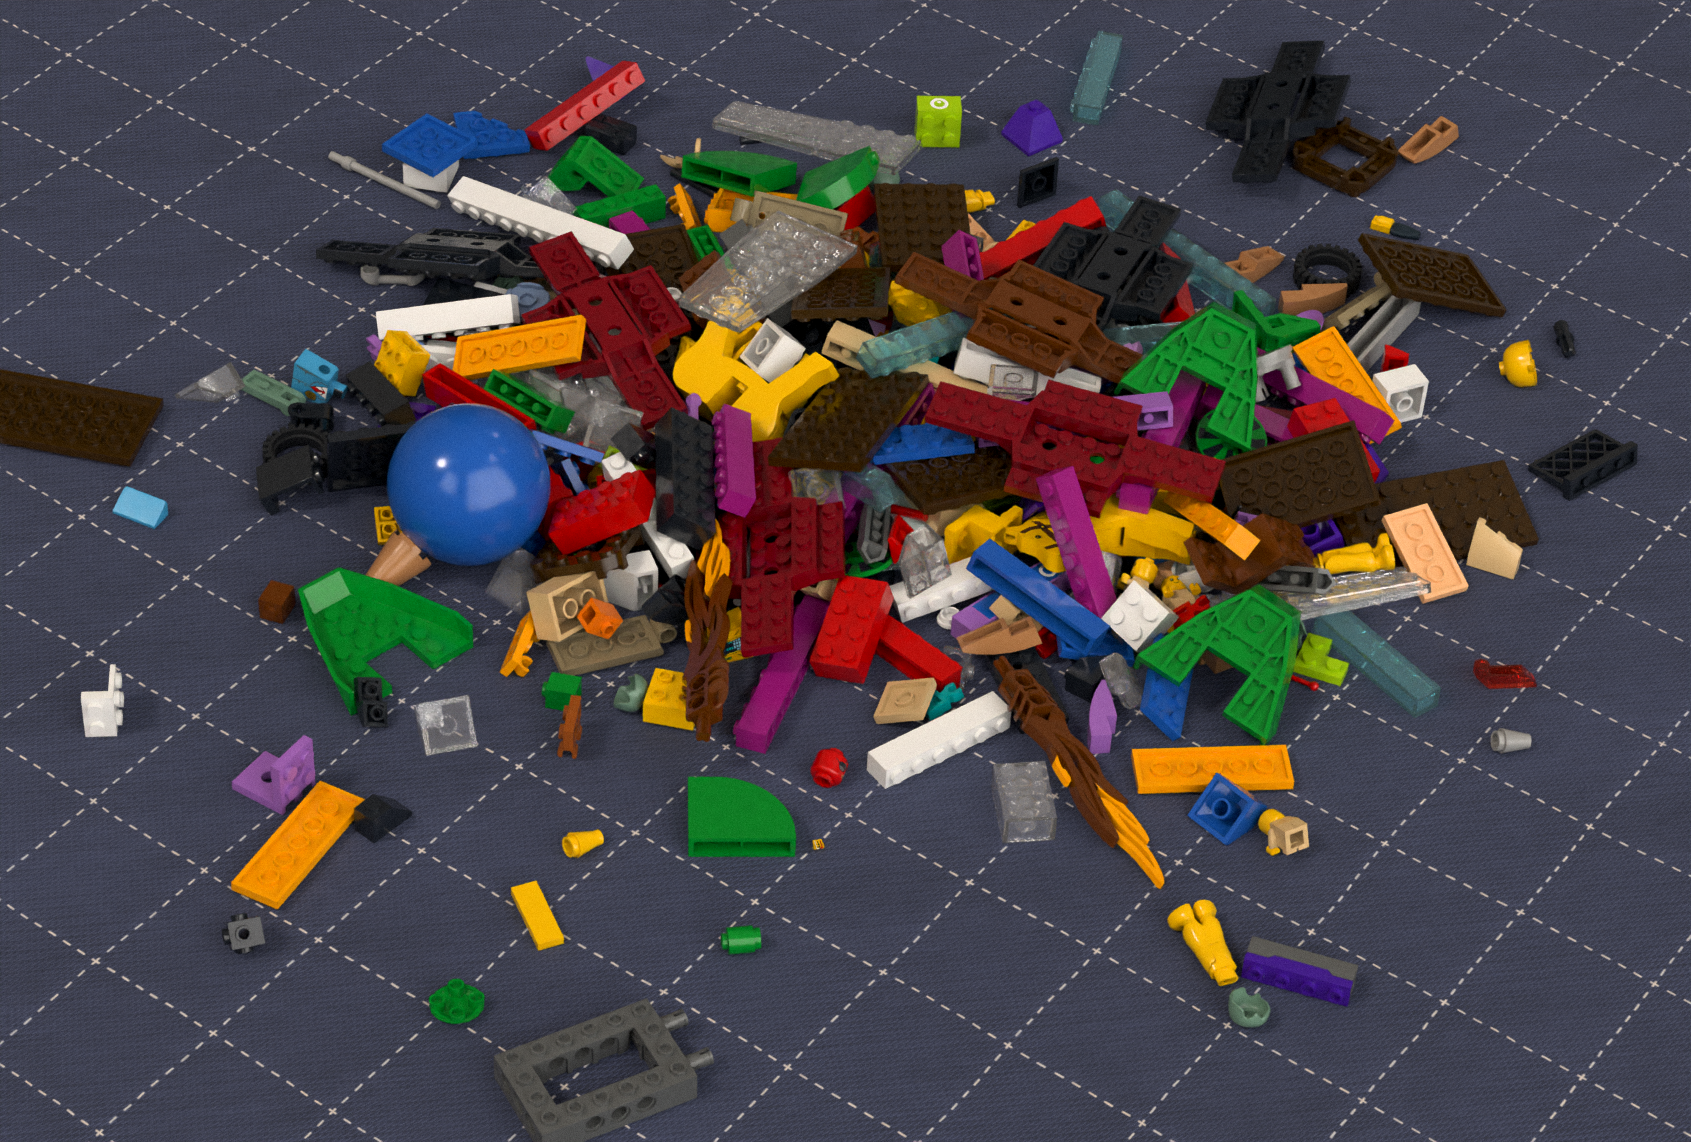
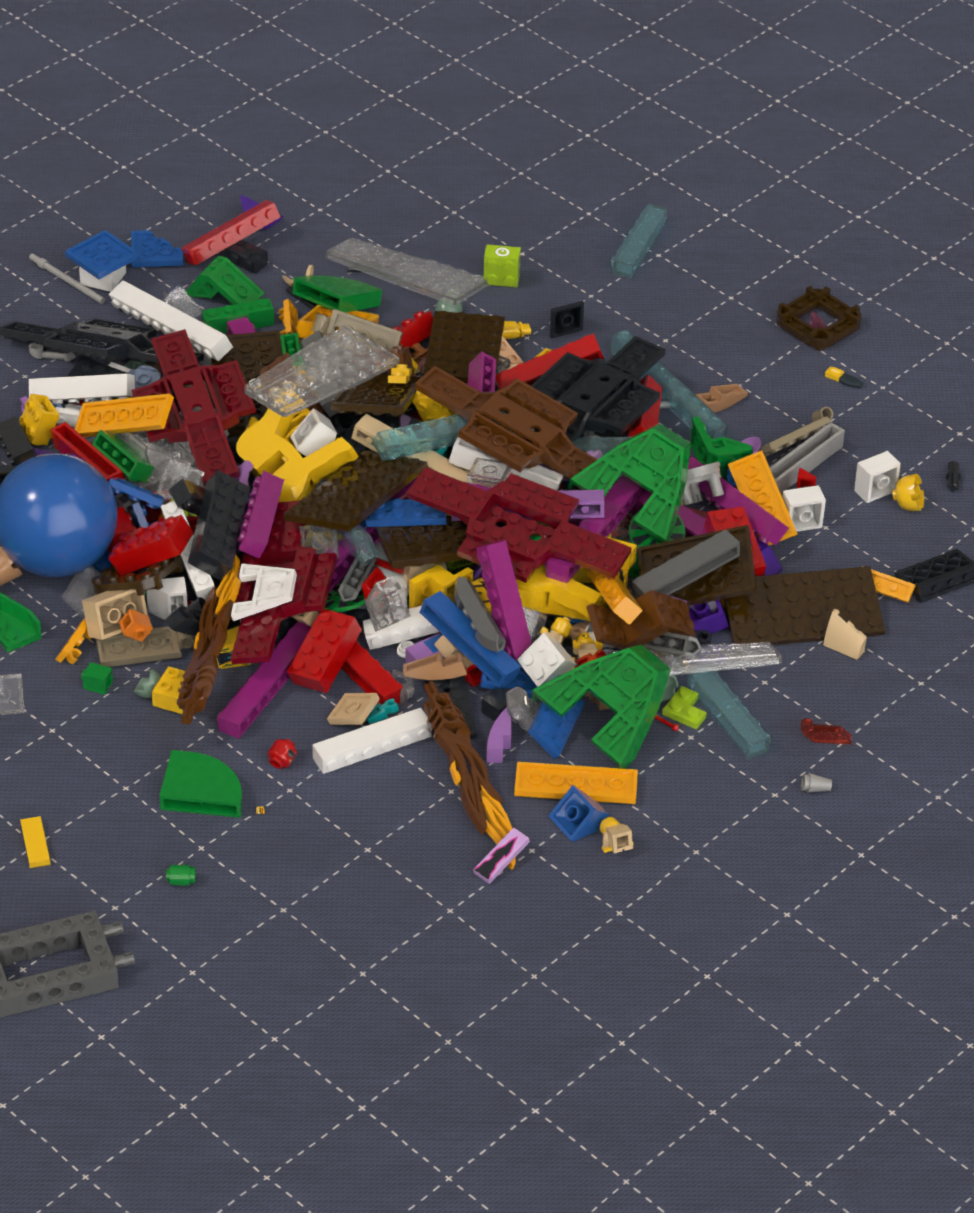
camera: 10 degrees right, 0 degrees up
(571, 729) = (94, 704): dark orange plate -> none
(579, 843) = (82, 791): yellow cone -> none
(776, 555) = (272, 588): none -> white wing
(839, 179) = (408, 305): green brick -> none
(860, 267) = (400, 374): none -> yellow slope
(1023, 801) = (422, 793): clear brick -> none
(1032, 128) = (577, 277): dark purple slope -> none
(1061, 584) = (482, 622): none -> dark grey brick
(1146, 872) = (501, 855): none -> tile
(1206, 939) = (534, 910): yellow piece -> none
(1247, 113) = (749, 280): black piece -> none
(1248, 1009) = (549, 965): sand green hair -> none
(1293, 478) = (689, 565): none -> dark grey brick
(1299, 971) = (599, 941): dark purple piece -> none
(1313, 297) = (762, 427): medium nougat slope -> none
(1327, 256) = (778, 420): black tyre -> none
(1344, 161) = (816, 321): none -> clear pink slope
(1358, 557) = (731, 632): yellow piece -> none
(1425, 551) = (788, 632): light nougat plate -> none
(1429, 140) = (890, 311): medium nougat slope -> none
(1431, 275) = (855, 417): dark brown plate -> none
(1476, 347) = (877, 476): none -> white brick
(1535, 483) = (892, 586): none -> light orange plate

